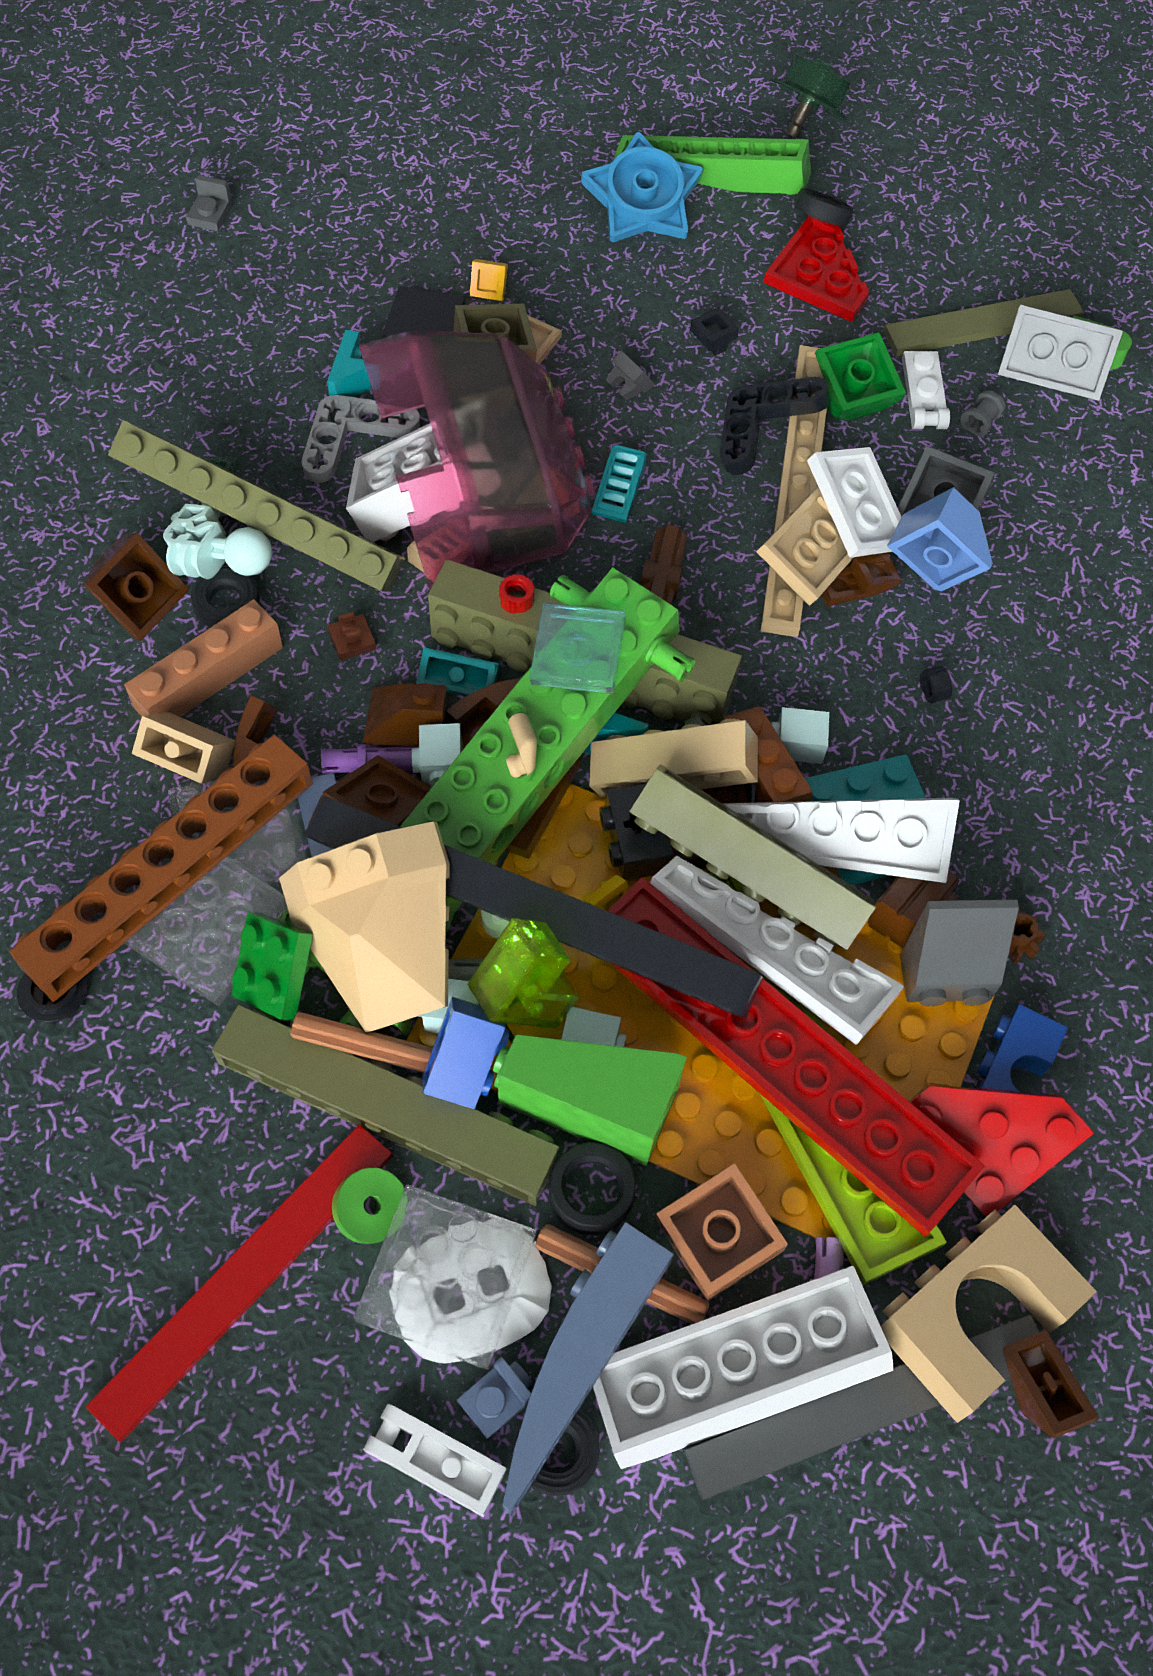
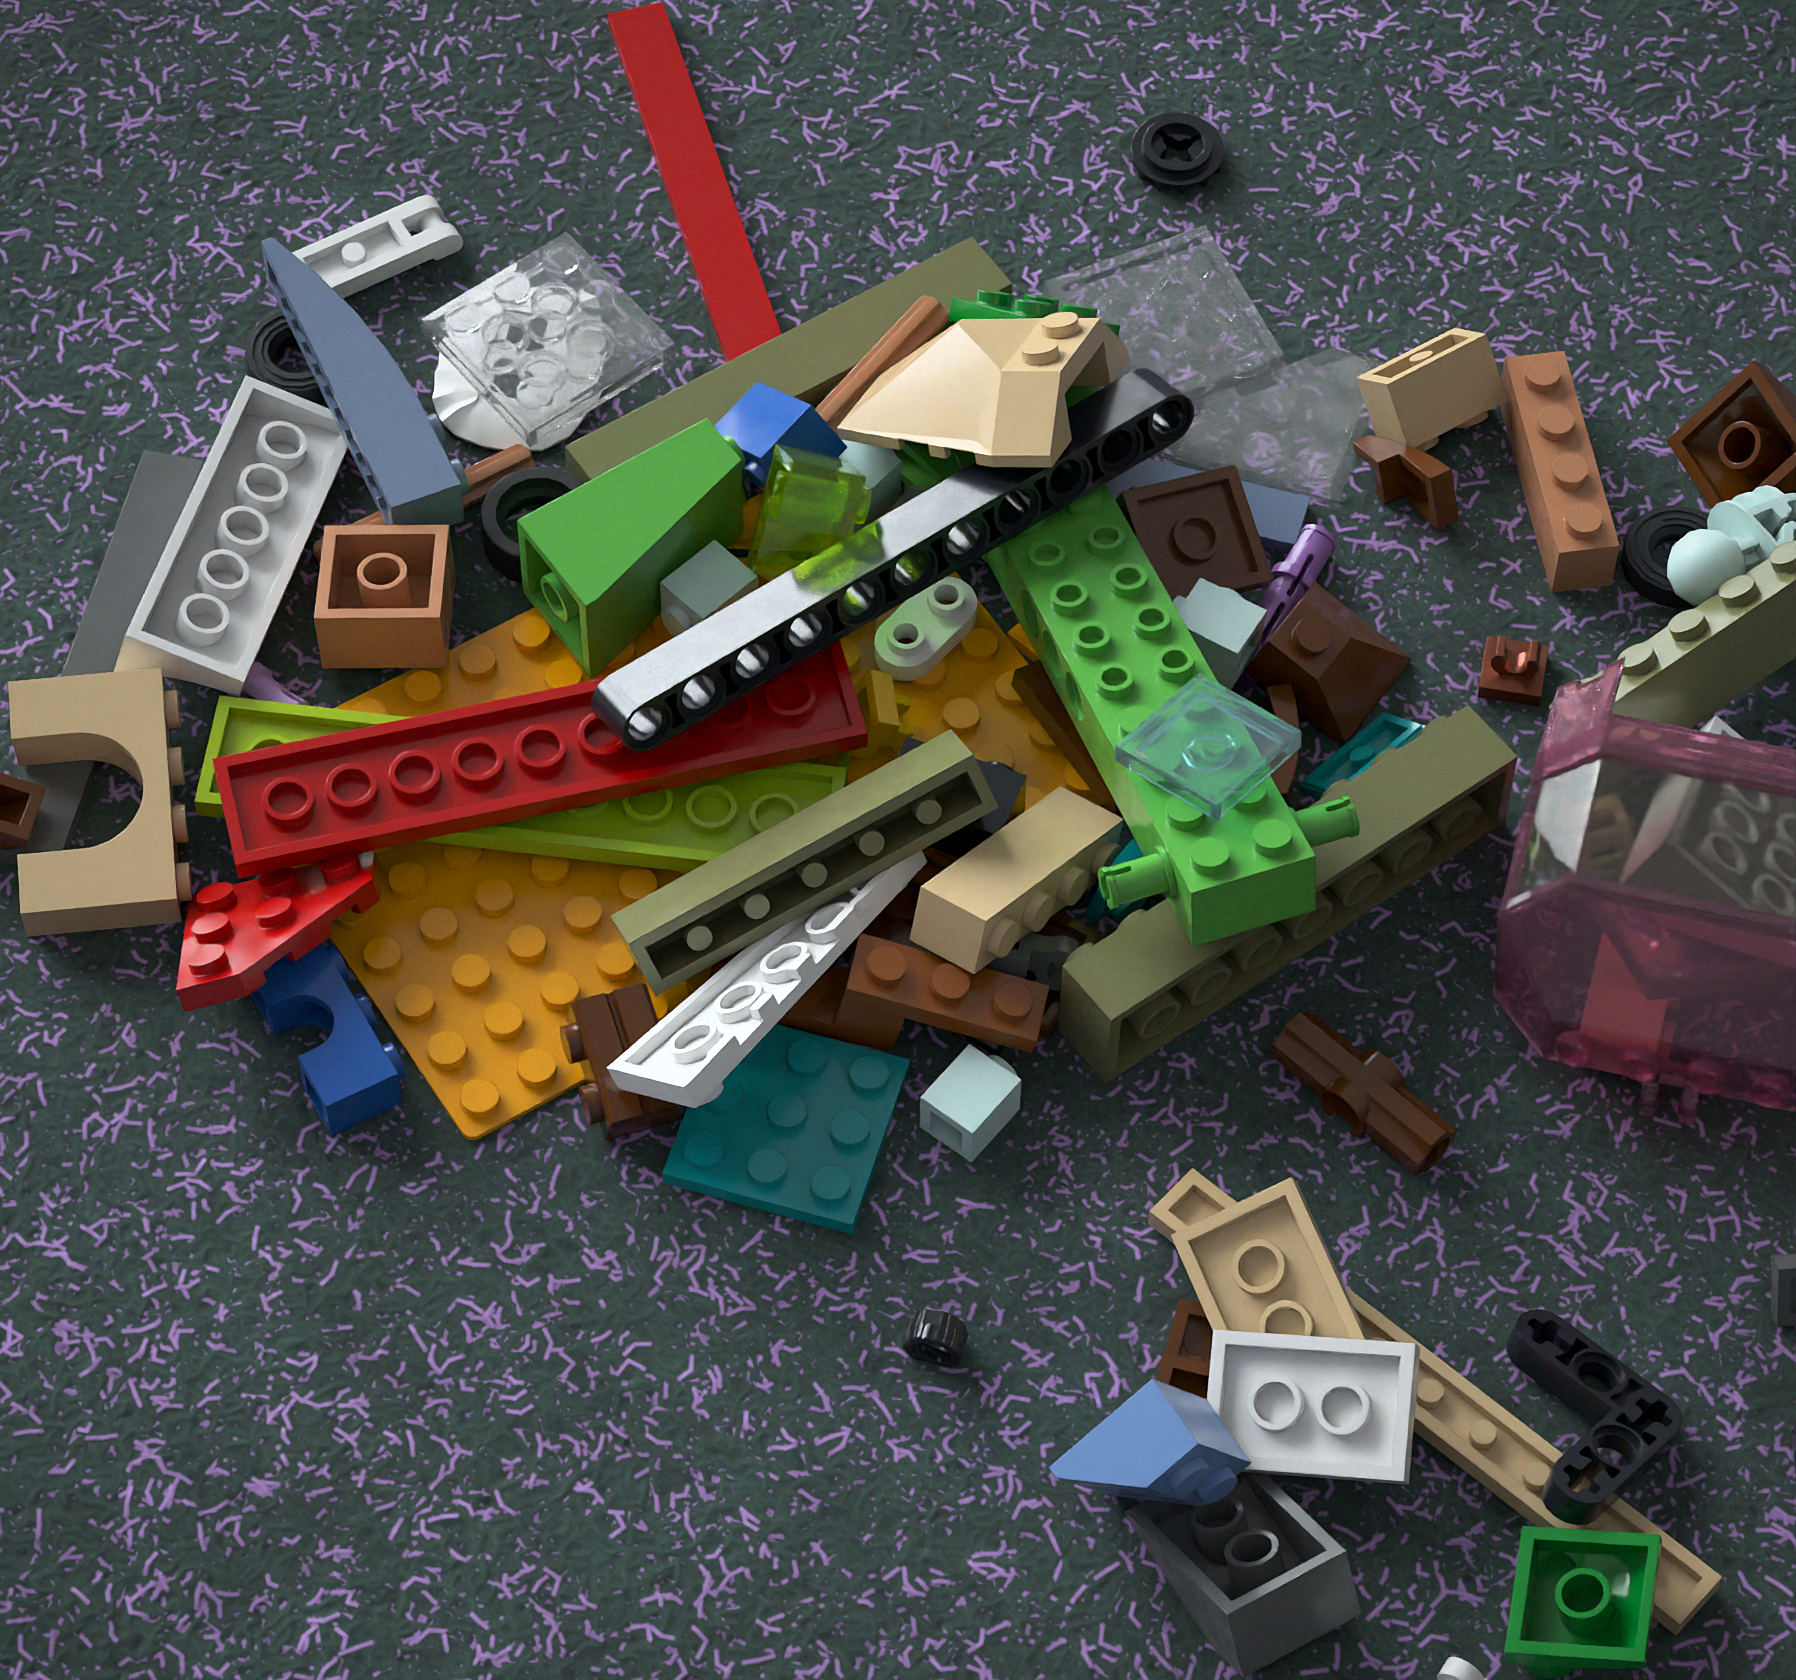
camera: 125 degrees right, 5 degrees down
(160, 885) = (1258, 295): dark orange brick -> none
(349, 1204) = (708, 316): bright green piece -> none
(497, 1397) = (397, 327): sand blue bracket -> none
(516, 604) = (1394, 775): red axle -> none
(526, 743) = (1098, 628): tan arm -> none
(624, 463) = (1599, 1187): teal slope -> none
(833, 988) = (612, 851): white wing -> none
(958, 951) = (507, 1019): dark grey slope -> none
(1028, 937) = (496, 1182): reddish brown gear -> none

